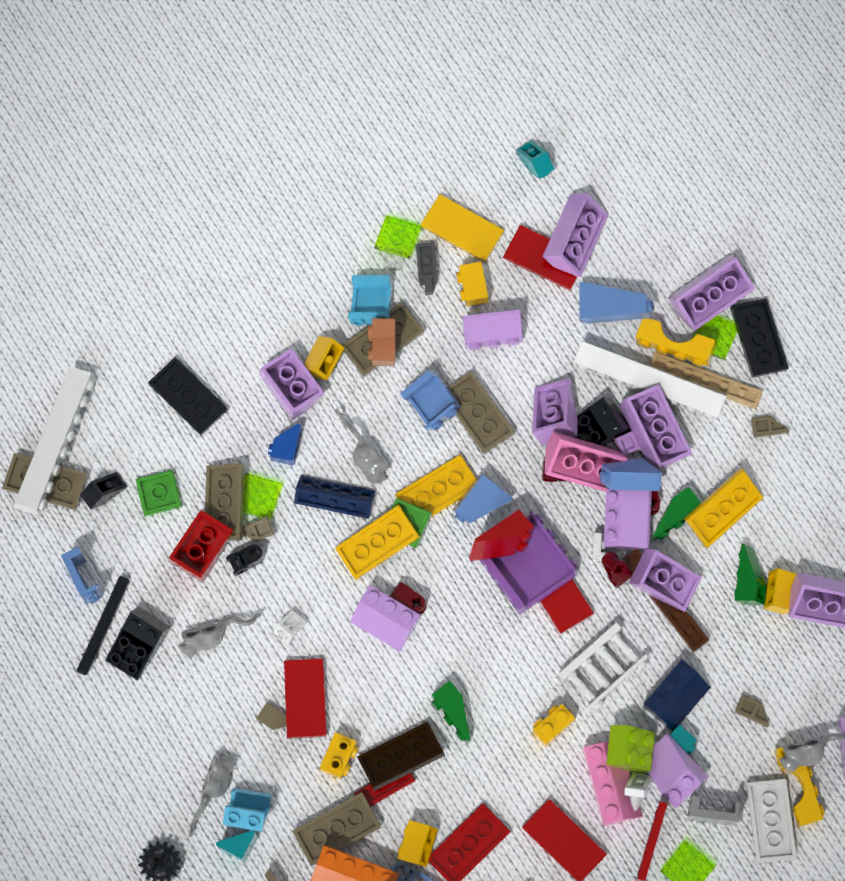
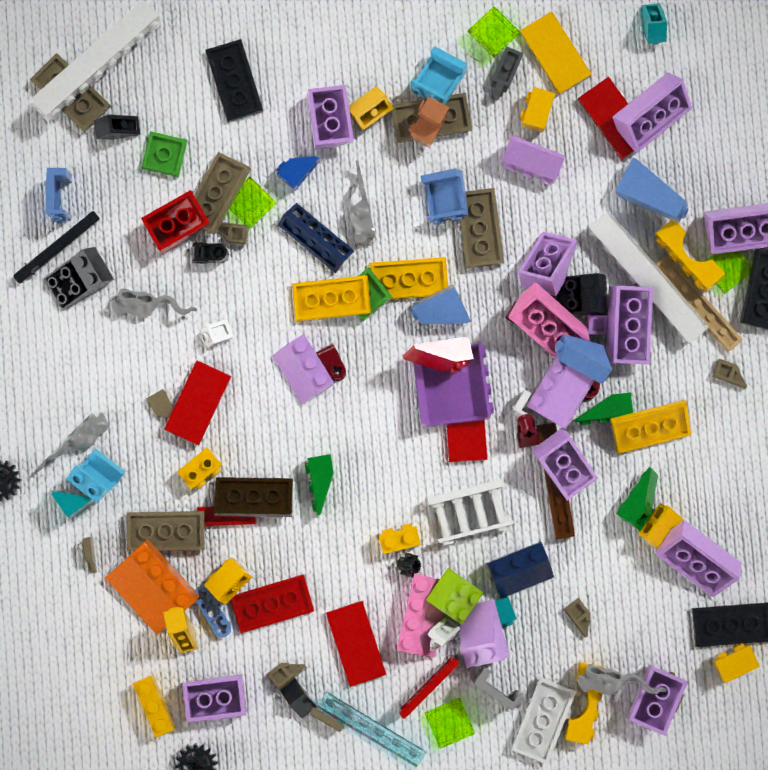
camera: 20 degrees right, 10 degrees up
(574, 743) = (409, 565): none -> black gear

